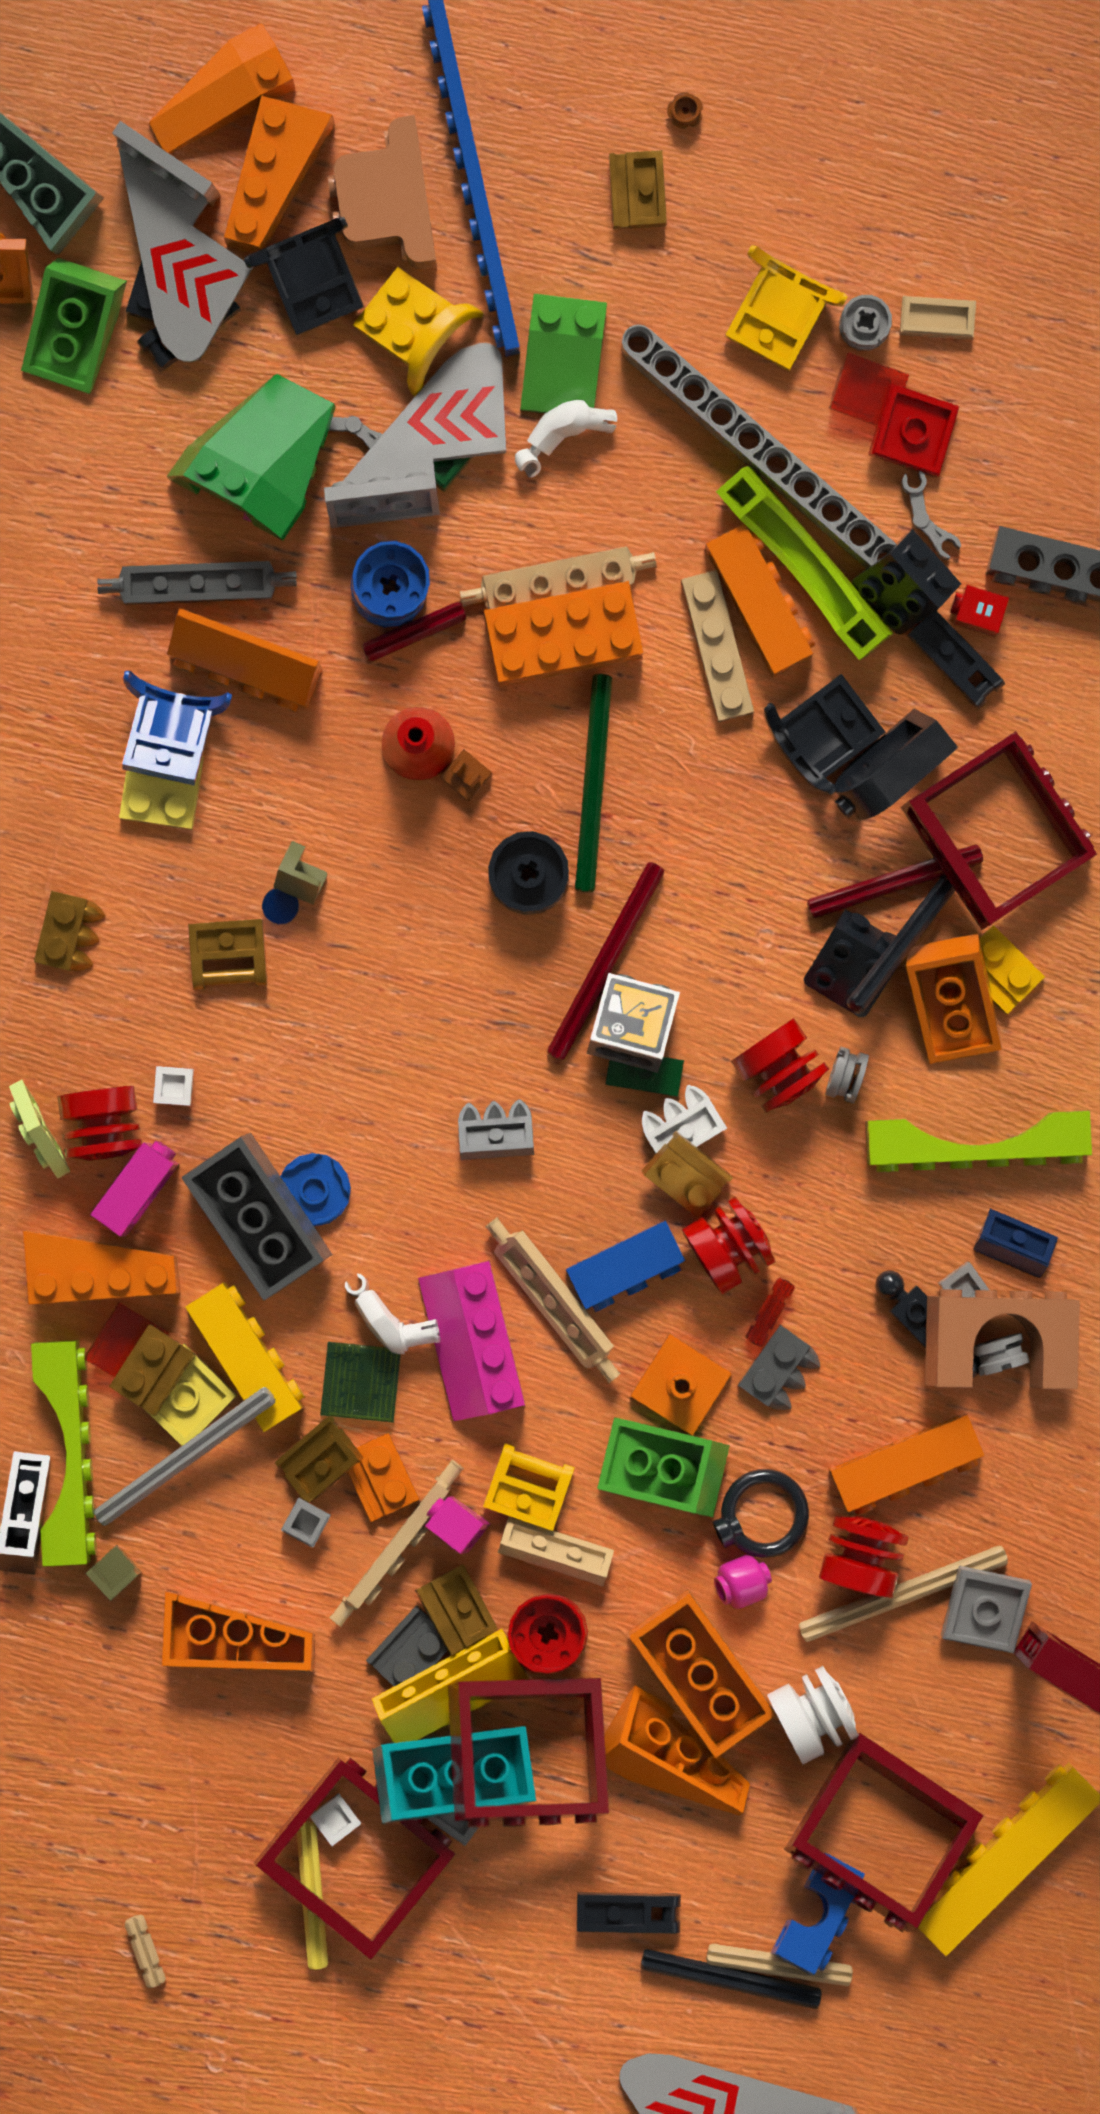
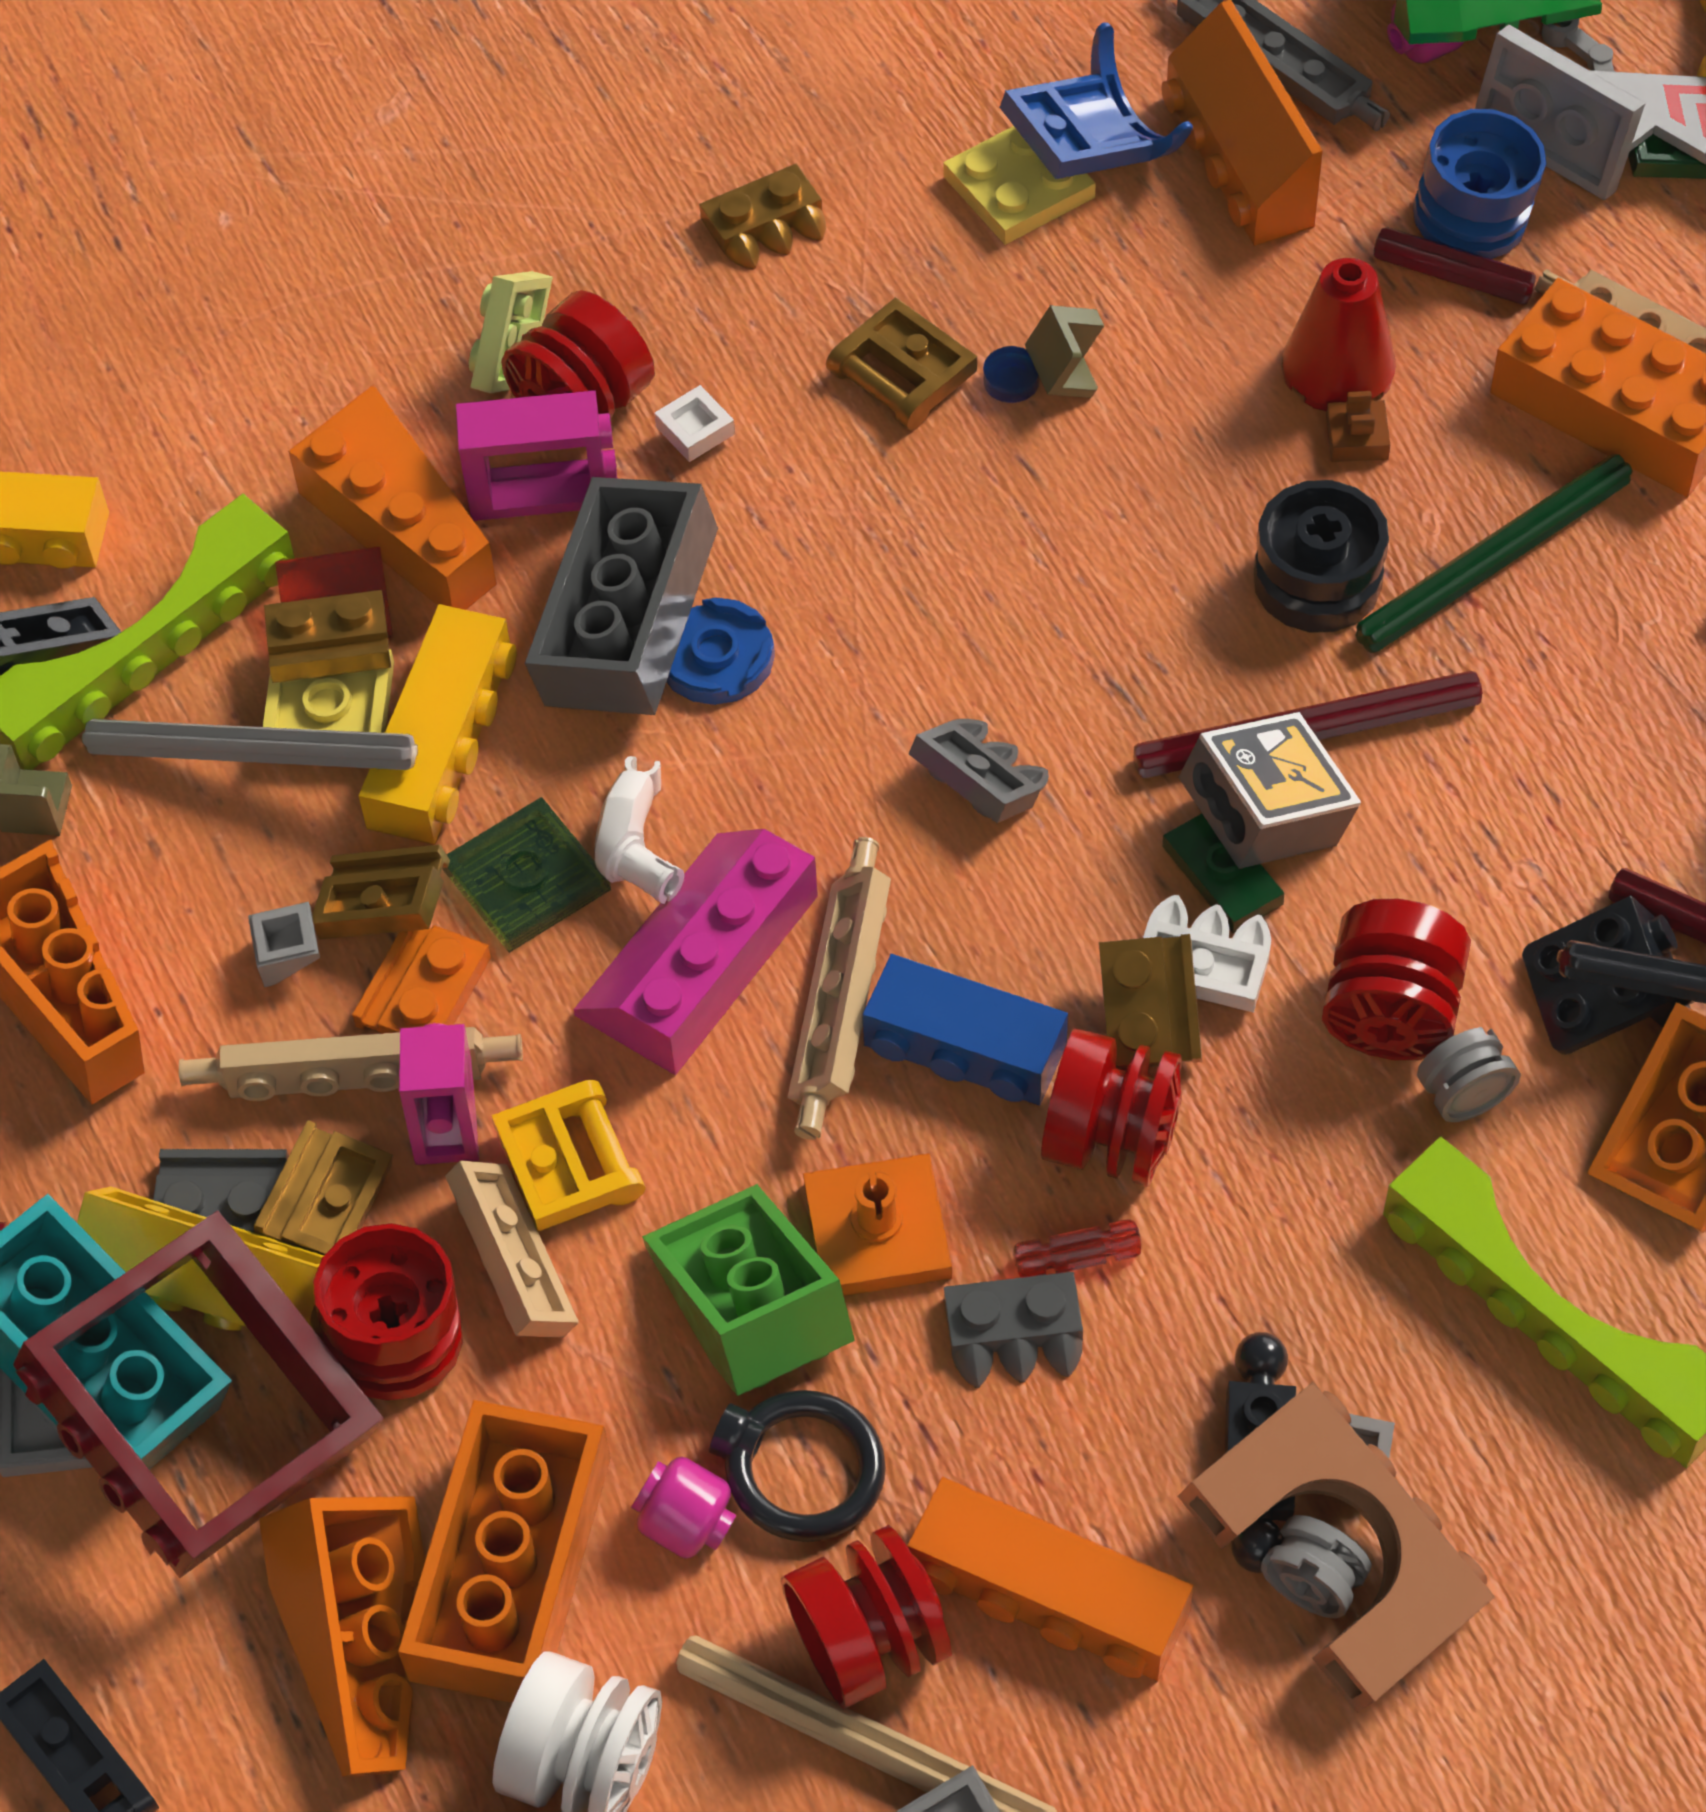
camera: 50 degrees right, 30 degrees down
(1015, 1243) = (1476, 1474): dark blue slope -> none

